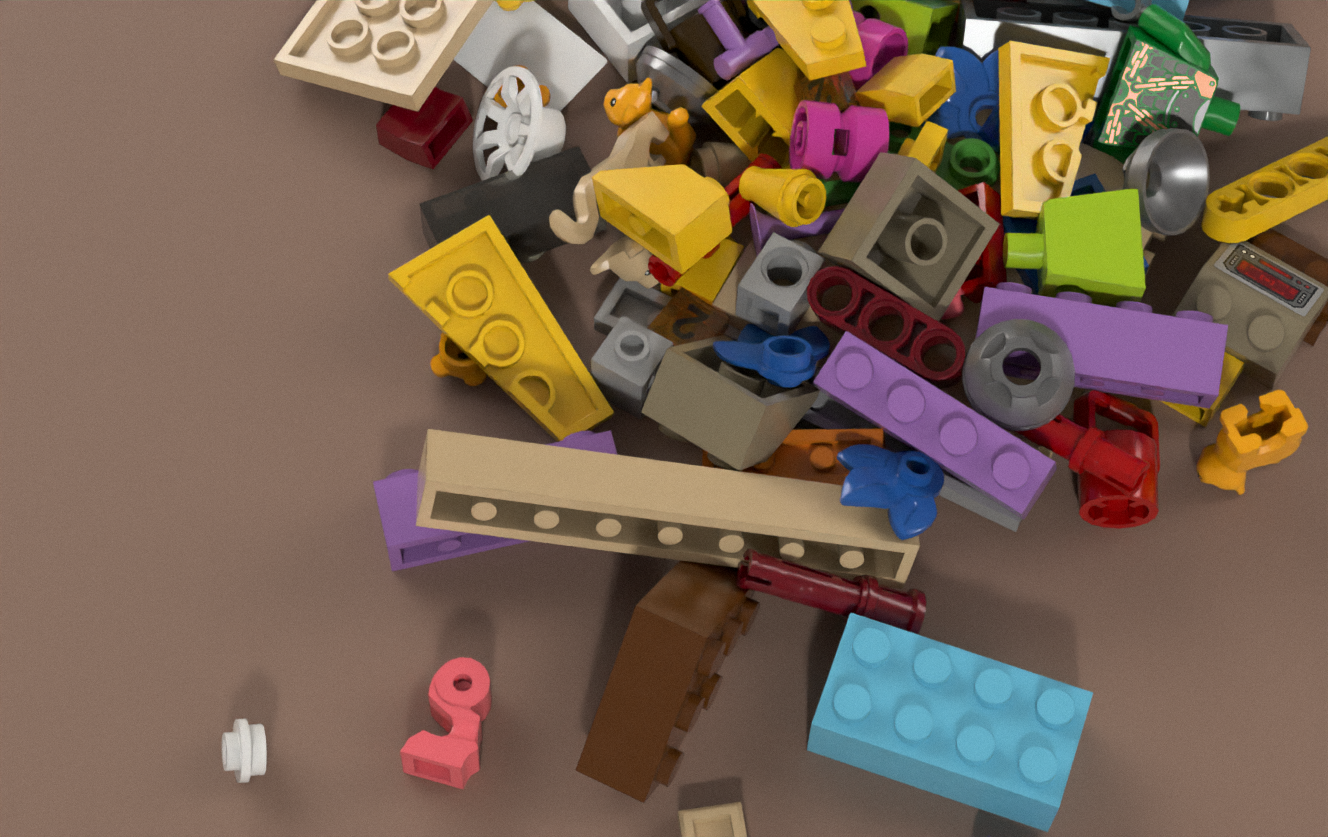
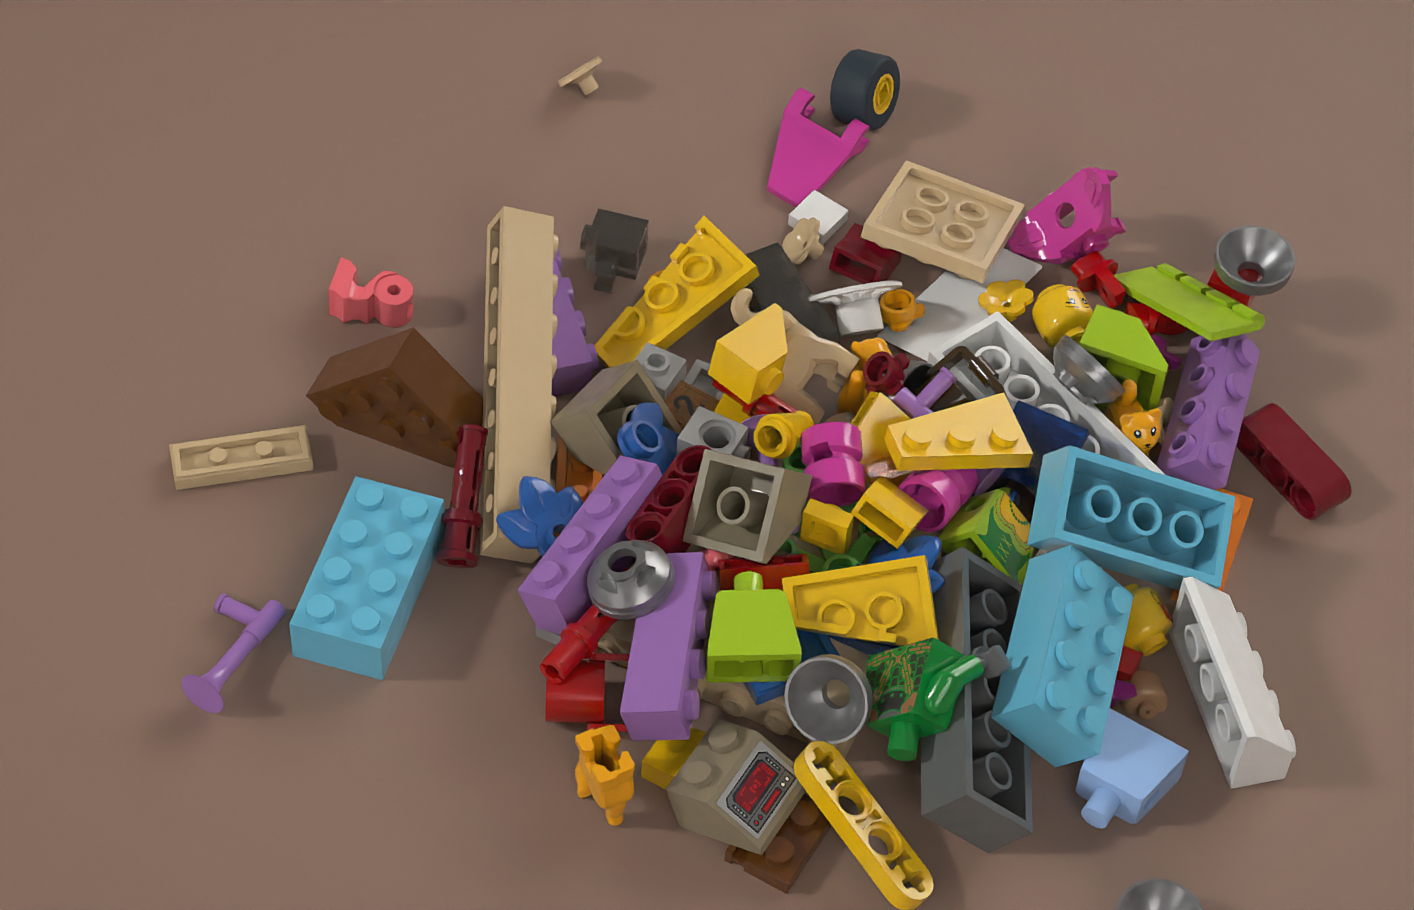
camera: 85 degrees right, 10 degrees down
(56, 437) = (583, 76): none -> tan plant
(145, 91) = (865, 88): none -> black wheel
(232, 175) = (808, 153): none -> dark pink flag
(244, 750) = (350, 188): white plate -> none
(346, 173) = (825, 210): none -> white tile
(389, 405) = (614, 247): none -> clear smoke brick
(390, 198) = (803, 241): none -> tan plant
(680, 64) = (885, 372): none -> dark red plate

